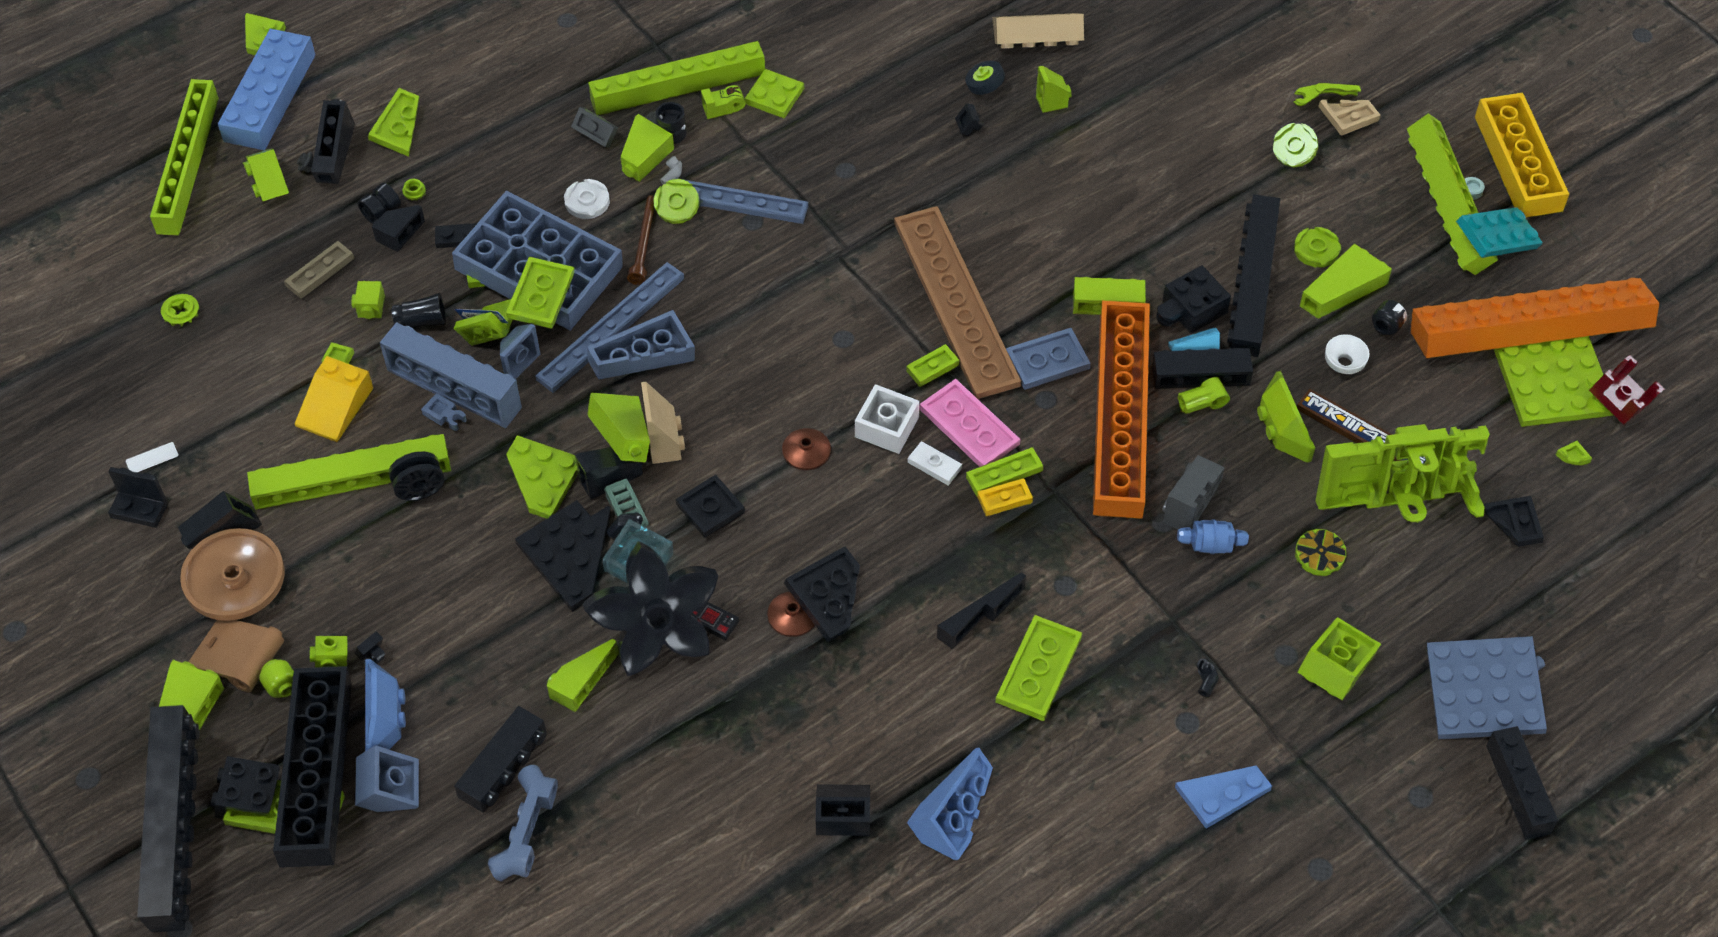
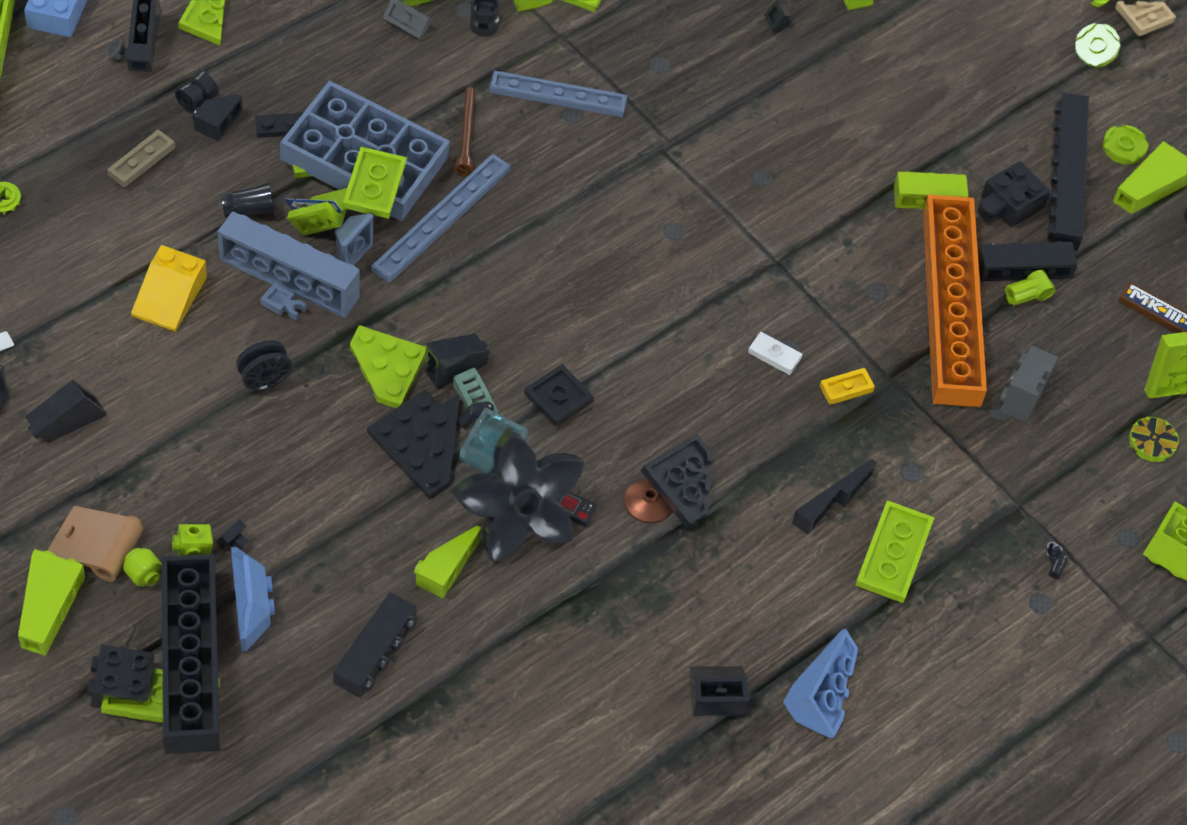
camera: 10 degrees left, 0 degrees up
(168, 819) = (49, 707): black brick -> none
(232, 574) = (85, 463): medium nougat dish -> none
(267, 175) = (79, 60): lime brick -> none
(337, 472) = (181, 361): lime brick -> none
(339, 352) = (168, 240): lime tile -> none
(368, 299) = (195, 188): lime brick -> none
(386, 780) = (262, 667): sand blue slope -> none
(413, 189) = (229, 78): lime plate -> none
(520, 856) = (403, 739): sand blue plate -> none
(586, 199) = (405, 90): white tile -> none
(621, 424) = (466, 314): lime slope -> none
(643, 347) = (478, 238): sand blue wedge -> none
(645, 148) = (460, 39): lime slope -> none
(662, 427) = (505, 317): tan slope -> none
(675, 170) = (491, 63): light grey arm -> none
(676, 201) = (496, 93): lime tile -> none
(808, 456) = (646, 346): copper dish -> none
(887, 419) = (726, 309): white brick -> none
(932, 365) = (765, 257): lime plate -> none
(957, 303) = (783, 196): medium nougat plate -> none
(969, 424) = (806, 315): bright pink plate -> none
(1005, 470) = (845, 360): lime plate -> none
(1048, 358) = (876, 251): sand blue plate -> none
(1200, 341) = (1025, 234): medium azure slope -> none
(1212, 536) = (1051, 424): medium blue piece -> none
(1223, 793) = (1080, 671): medium blue wing -> none
(1284, 421) = (1111, 311): lime wedge -> none
(1347, 347) = (1167, 243): white piece -> none

